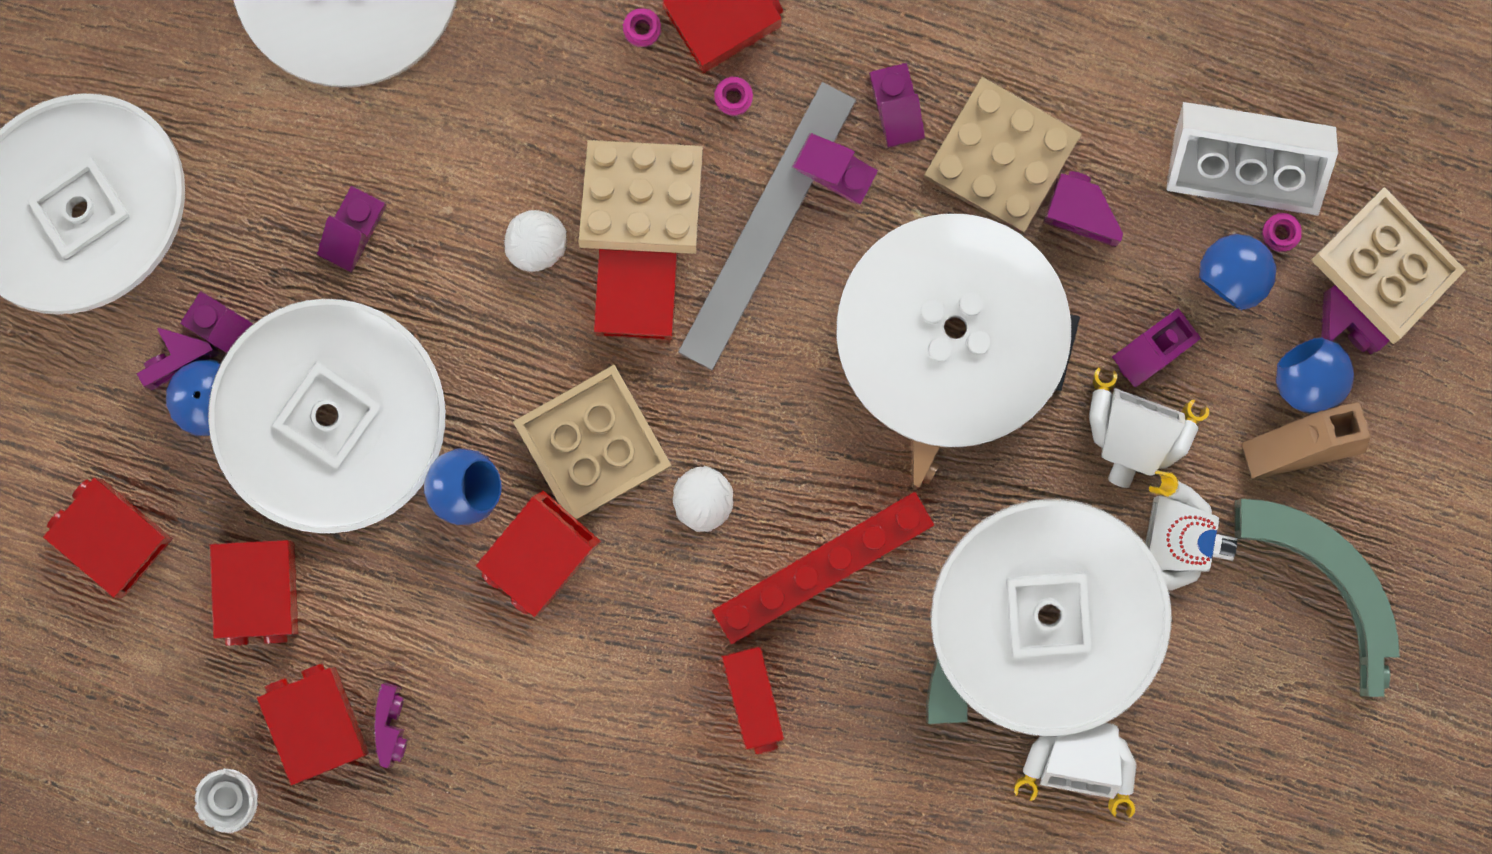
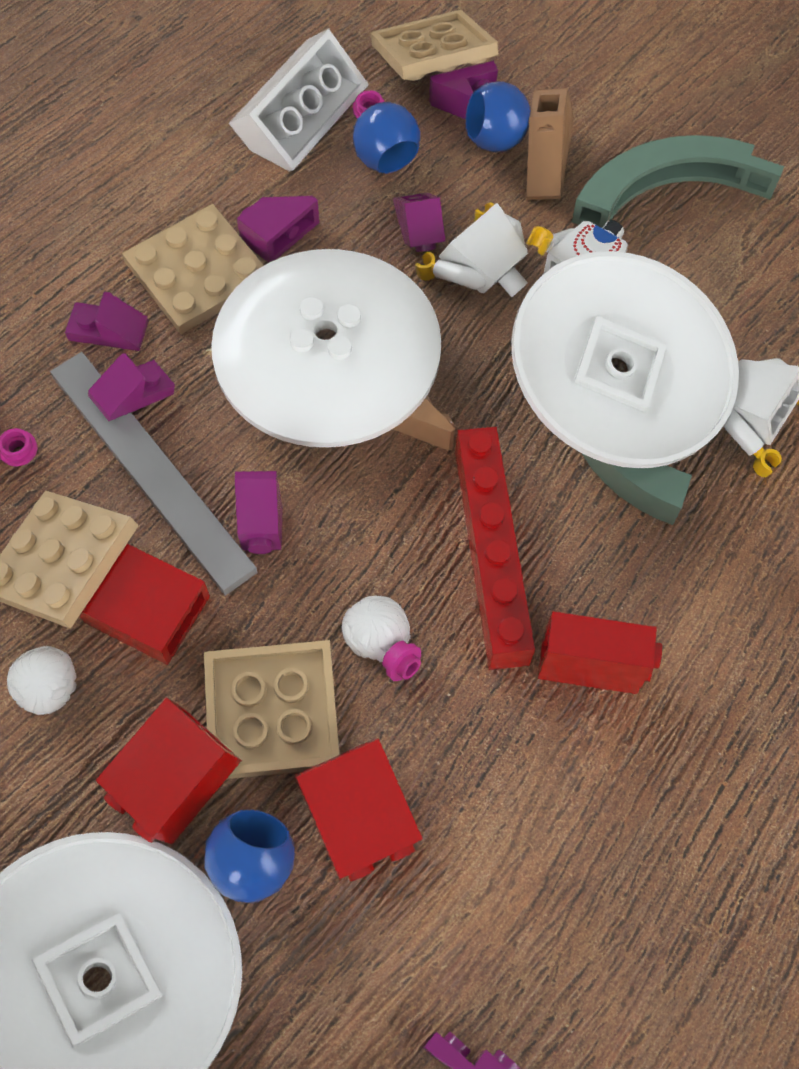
camera: 70 degrees left, 20 degrees down
(500, 388) = (167, 773): none -> red brick
(681, 534) = (402, 661): none -> dark pink plate
(756, 351) = (258, 511): none -> magenta slope

